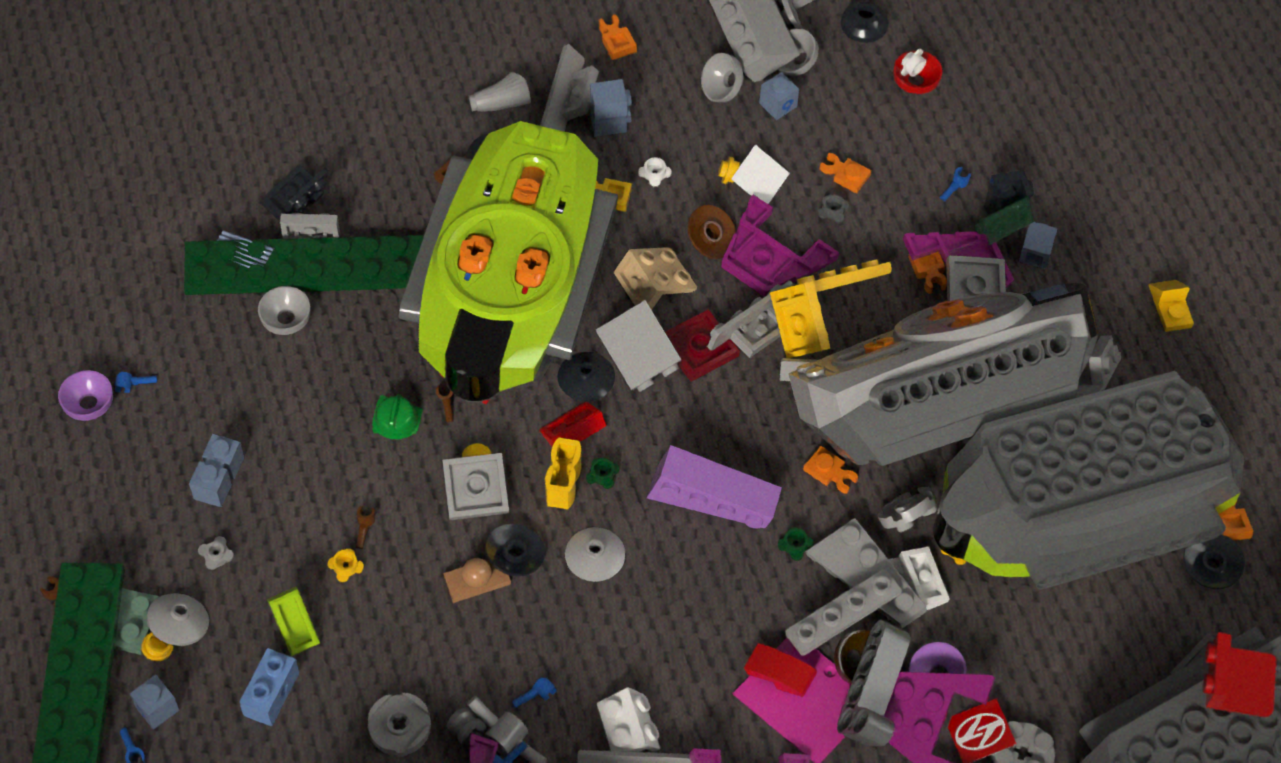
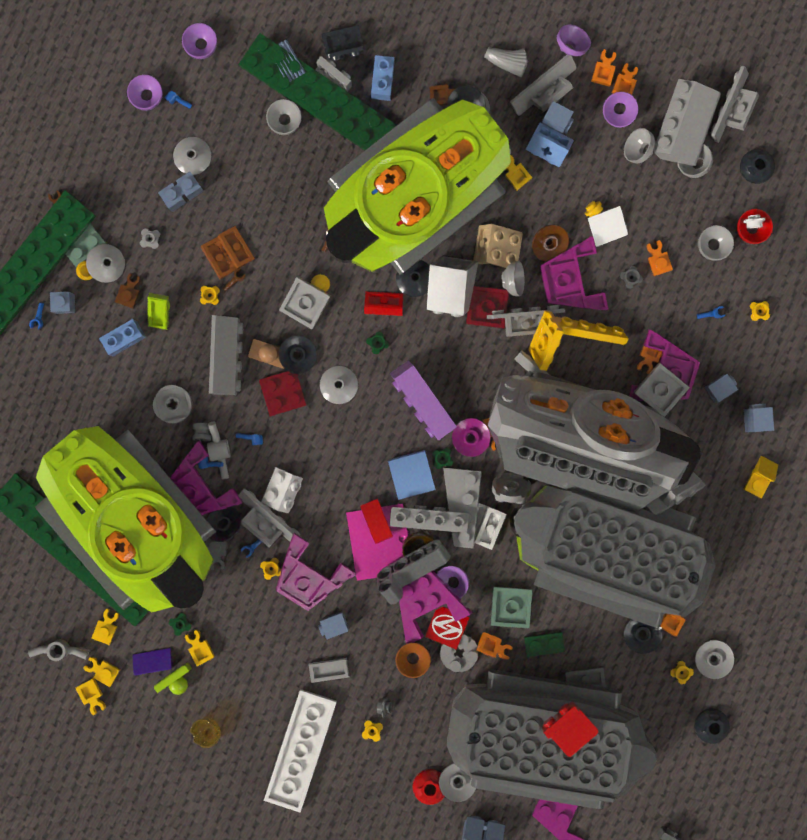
camera: 45 degrees right, 30 degrees up
(111, 290) = (196, 32): none -> medium lavender piece
(195, 440) = (197, 163): none -> light grey dish
(236, 636) = (128, 294): none -> reddish brown plate
(334, 491) = (235, 249): none -> dark orange slope
(371, 198) = (382, 78): none -> medium blue brick
(396, 417) = (297, 227): green piece -> none
(423, 613) = (225, 355): none -> light grey slope
(532, 611) = (282, 393): none -> dark red plate
(558, 32) = (576, 38): none -> medium lavender piece
(563, 473) = (358, 327): yellow brick -> none
(609, 133) = (549, 145): none -> medium blue brick
(651, 37) = (624, 81): none -> orange plate
(651, 165) = (548, 173): white plate -> none
(674, 48) = (627, 116): none -> medium lavender piece
(702, 292) = (514, 278): none -> light grey piece
(774, 587) = (411, 474): none -> medium blue slope
(779, 95) = (662, 182): sand blue brick -> none
(812, 481) = (474, 447): none -> magenta dish
(892, 104) = (725, 241): none -> light grey piece
(1005, 141) = (764, 307): none -> yellow plate
(1006, 189) = (728, 345): black bracket -> none
(1006, 220) = (717, 366): clear green hinge -> none
(1034, 649) = (511, 607): none -> sand green plate
(1055, 713) = (491, 646): none -> orange plate
(1109, 240) = (758, 418): none -> sand blue piece
(1113, 664) = (544, 644): none -> dark green plate

